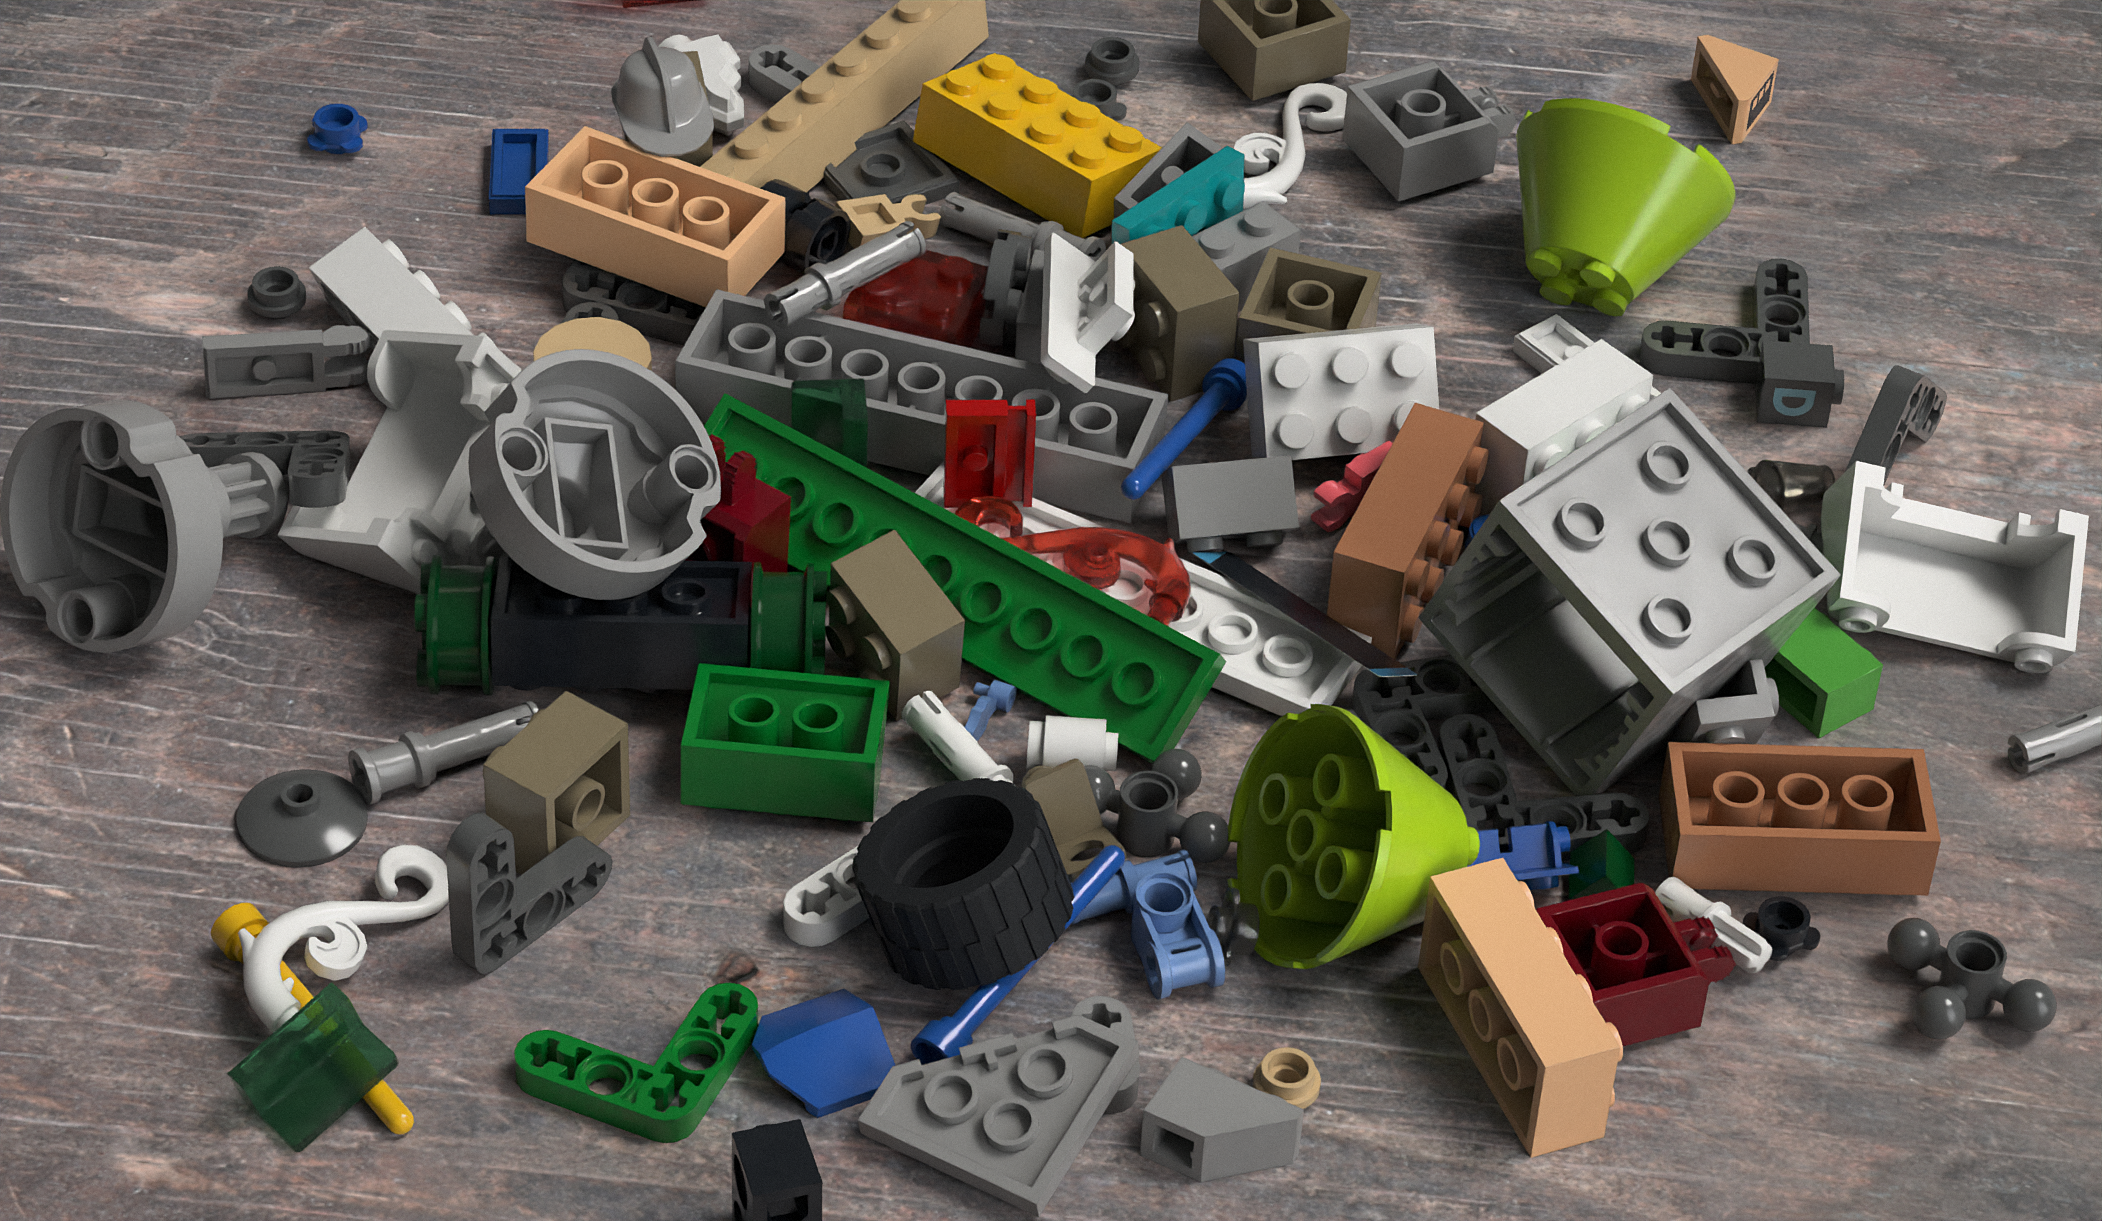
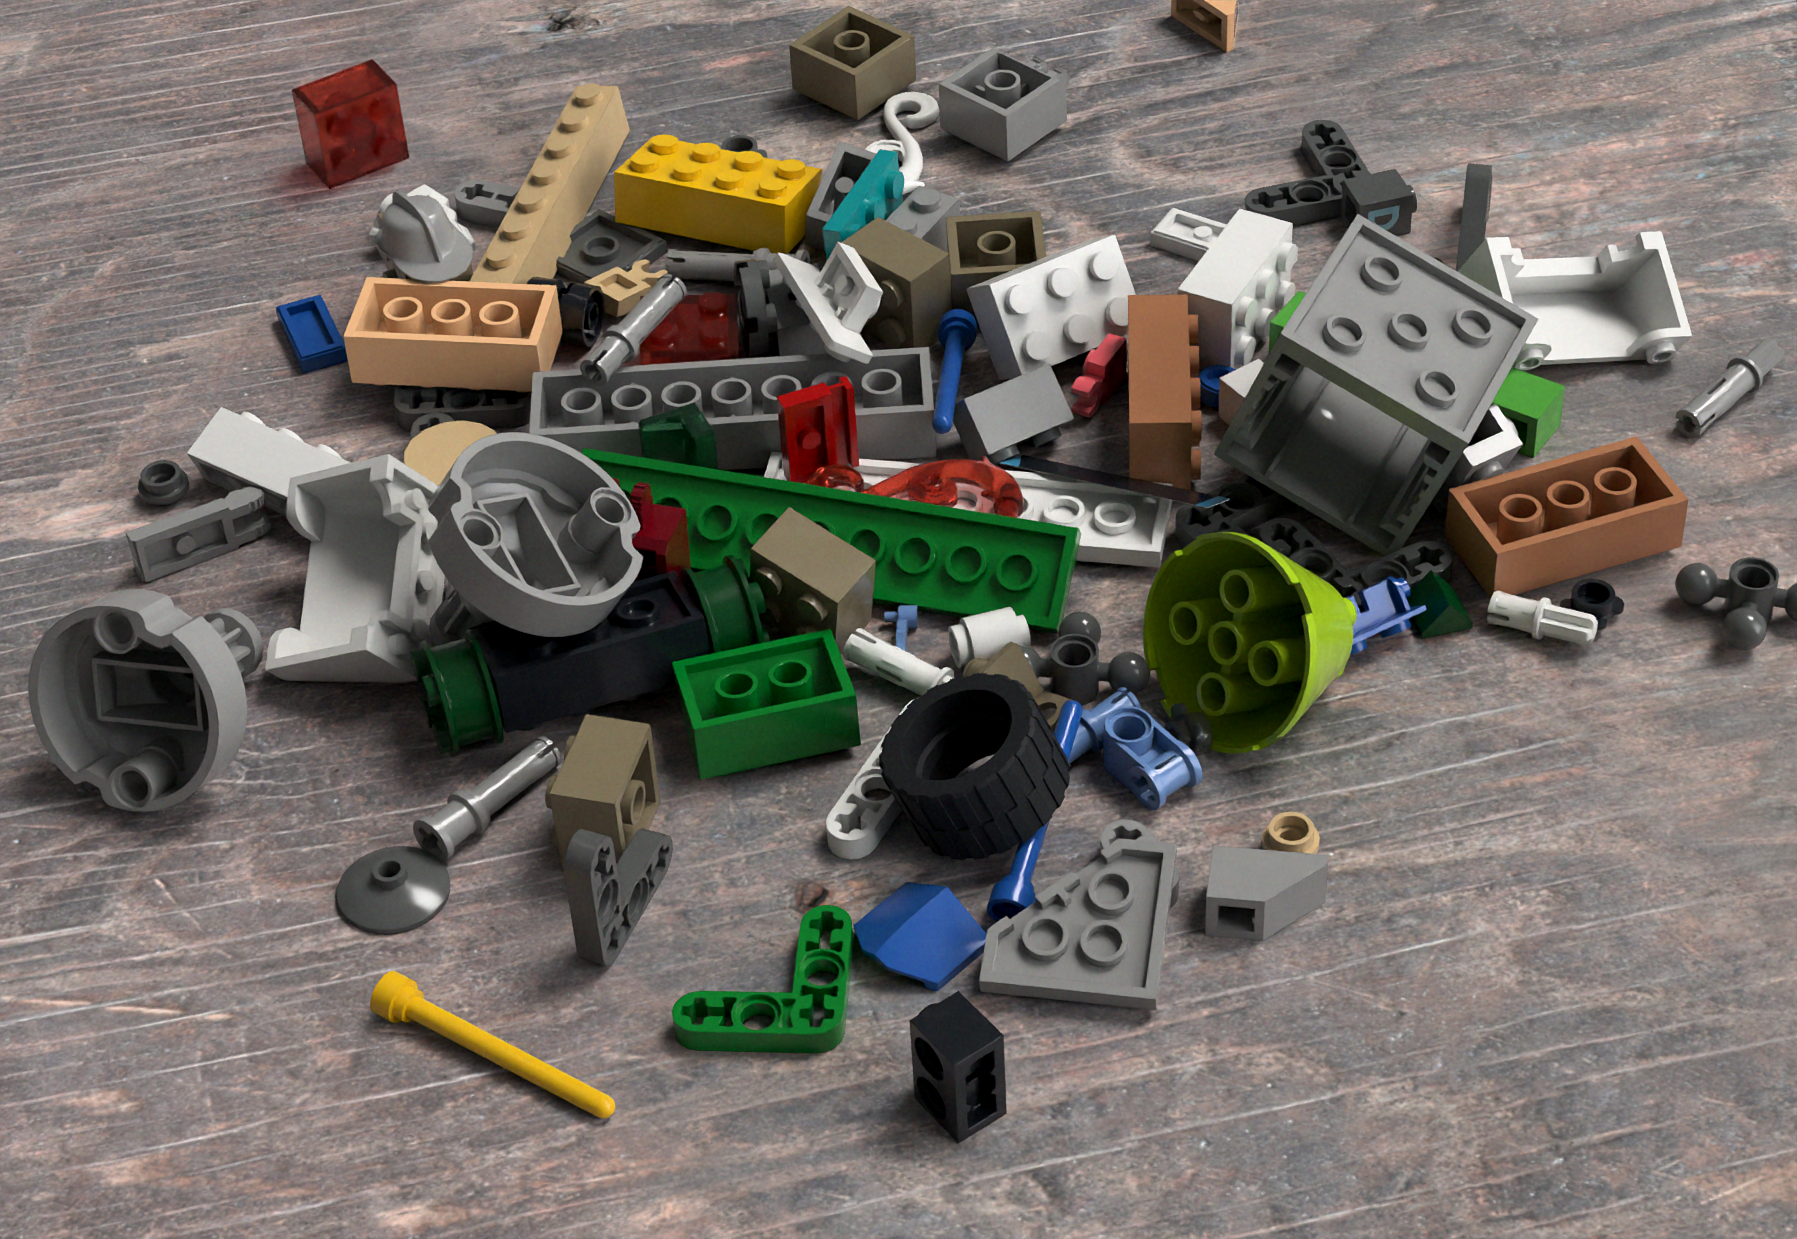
camera: 15 degrees left, 0 degrees up
(312, 1069) = (516, 1088): clear green panel -> none
(313, 460) = (267, 600): dark grey beam -> none
(337, 129) = (148, 343): blue plate -> none
(338, 924) = (489, 978): white plant -> none
(1112, 61) = (737, 119): dark grey plate -> none
(1519, 1007) = (1445, 723): light nougat brick -> none
(1611, 200) = (1183, 107): lime cone -> none
(1639, 963) = (1499, 671): dark red hinge -> none

